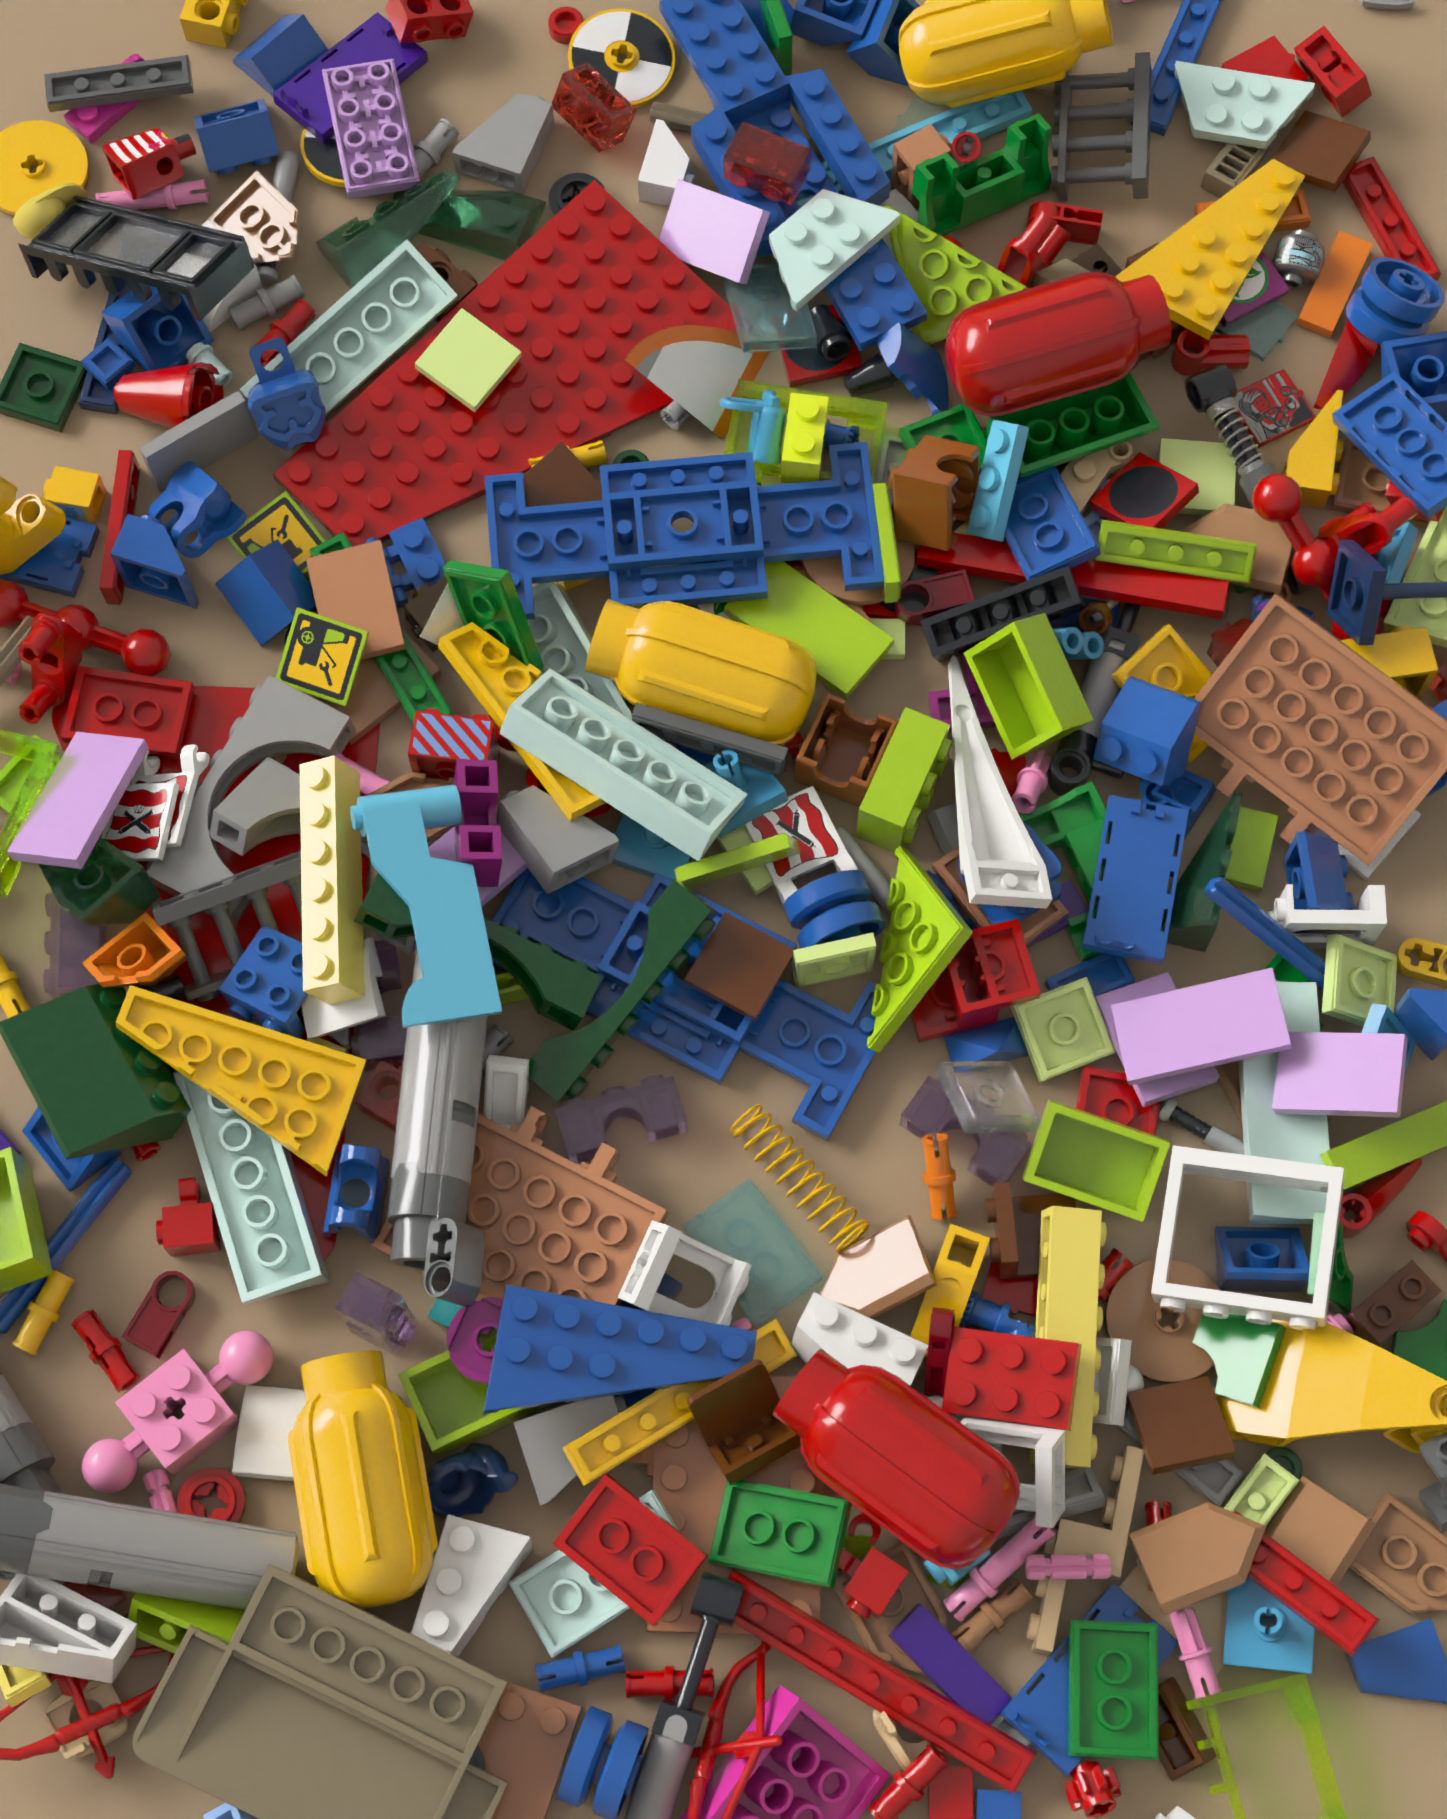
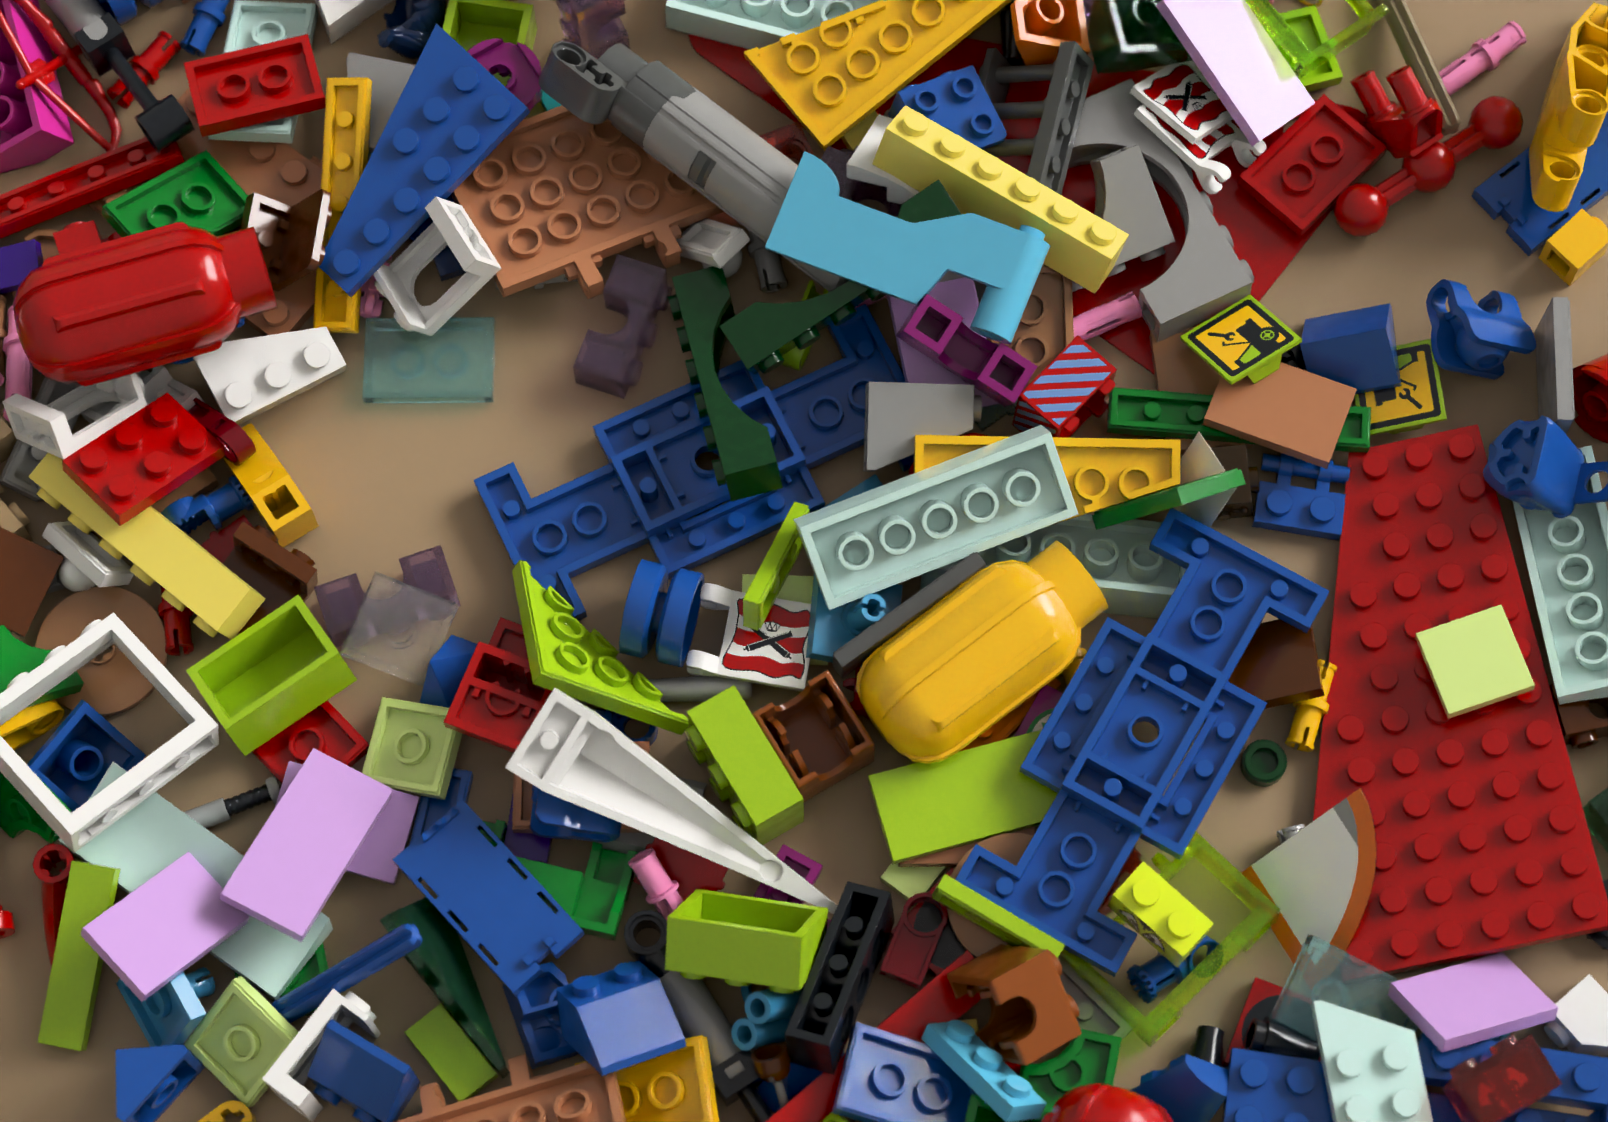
camera: 125 degrees right, 0 degrees up
(122, 503) = (1510, 262): red tile -> none
(150, 561) = (1455, 252): blue slope -> none
(357, 1191) = (711, 68): blue piece -> none
(740, 966) = (671, 494): reddish brown tile -> none
(766, 425) = (1212, 898): dark azure piece -> none
(833, 960) = (614, 592): yellowish green tile -> none
(848, 1226) = (374, 431): yellow piece -> none
(880, 1271) = (325, 436): tile -> none
(939, 1176) = (365, 542): orange pin -> none

